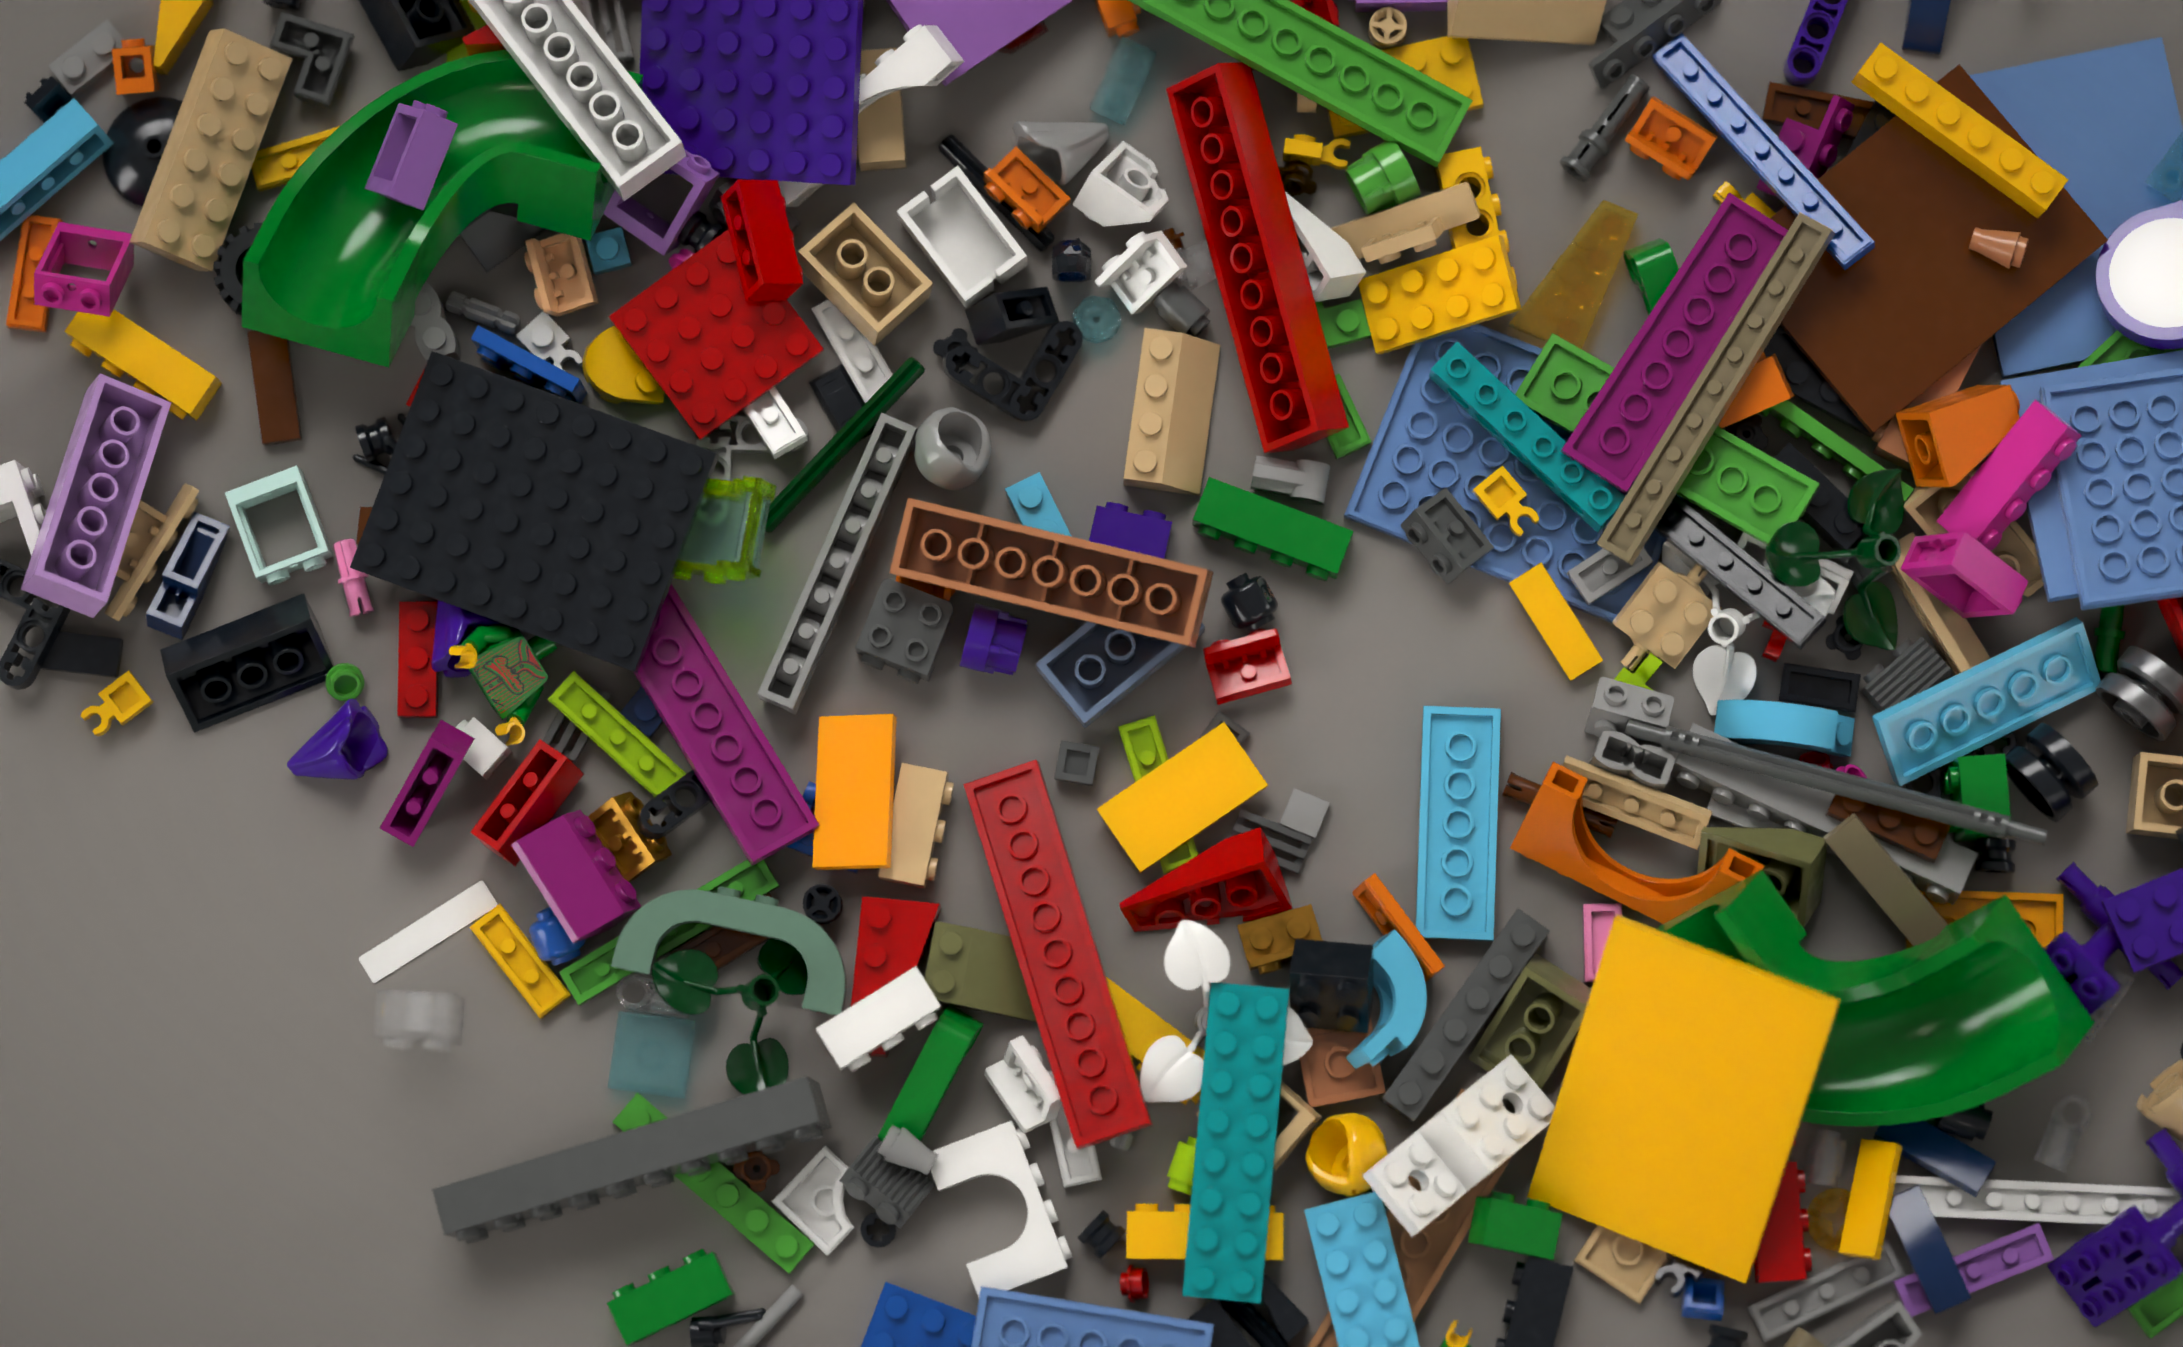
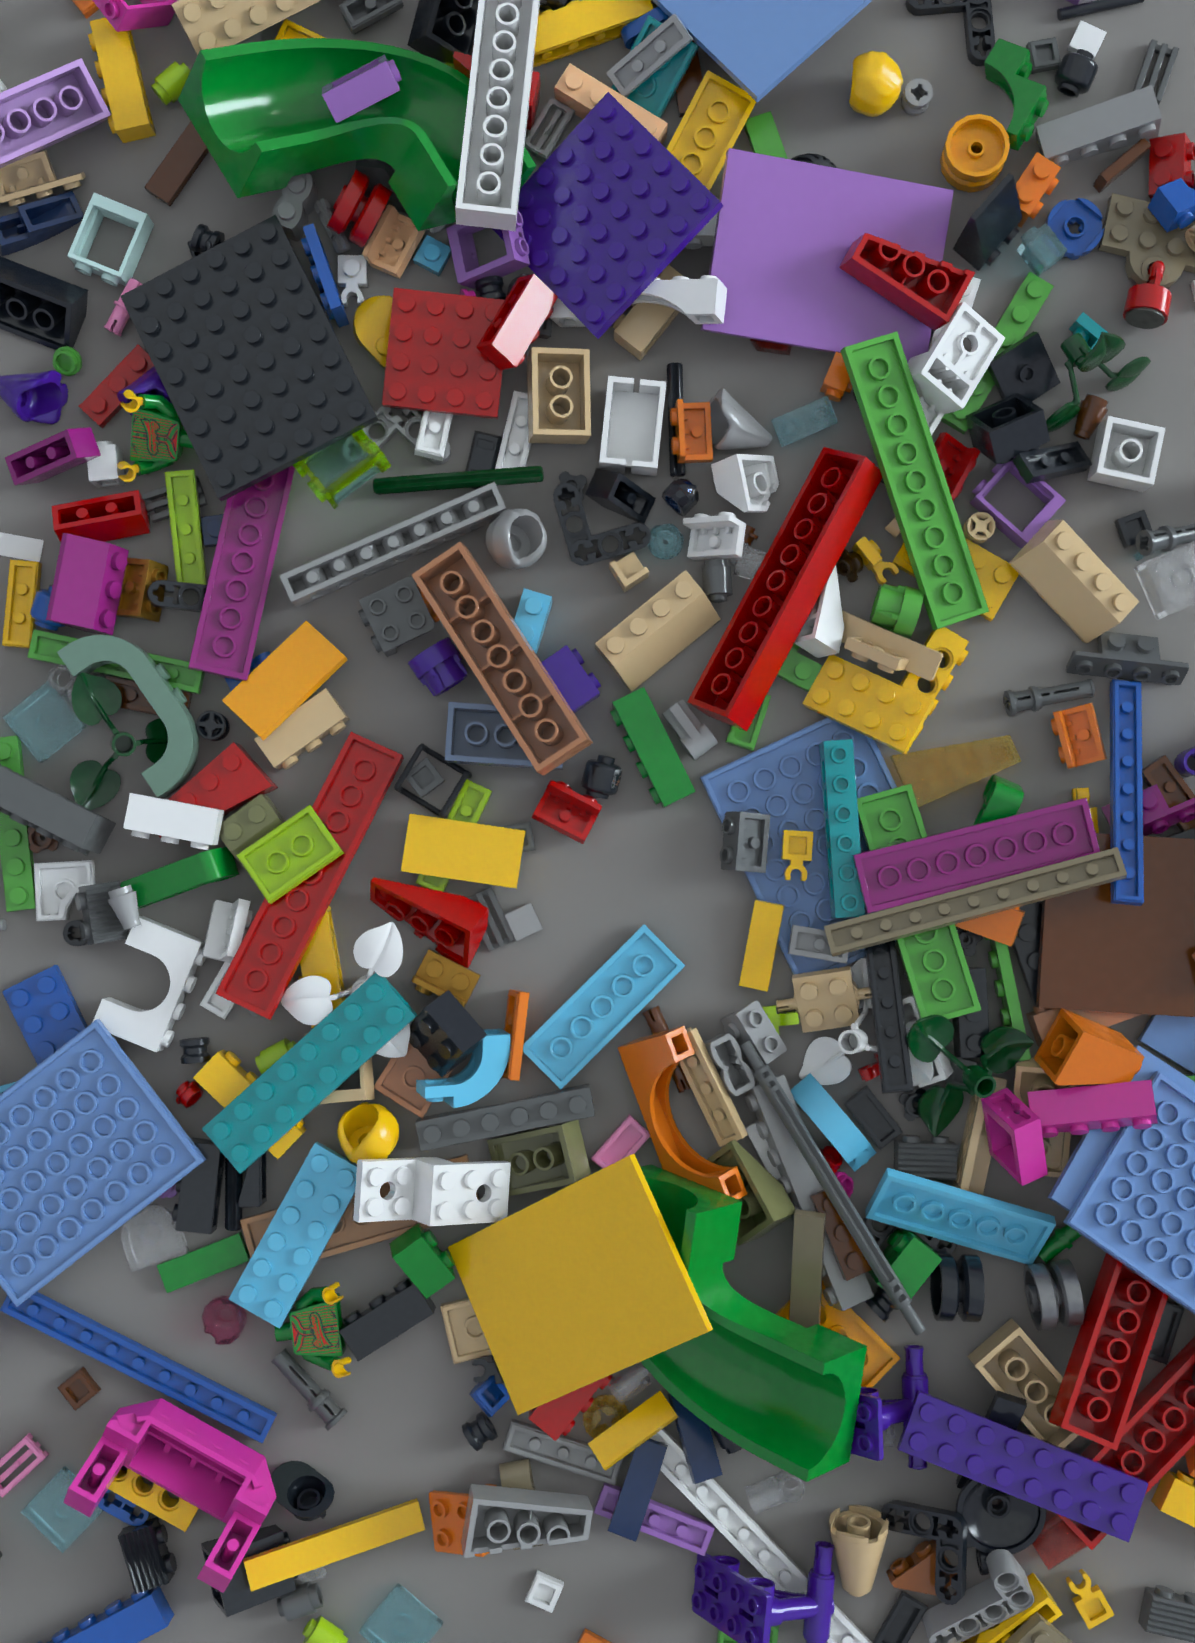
camera: 35 degrees right, 5 degrees up
(197, 316) = (171, 82): none -> lime brick
(502, 271) = (358, 208): none -> red wheel
(1020, 951) = (290, 854): none -> lime tile
(1051, 735) = (442, 813): none -> black piece
(1088, 381) = (628, 571): none -> tan panel

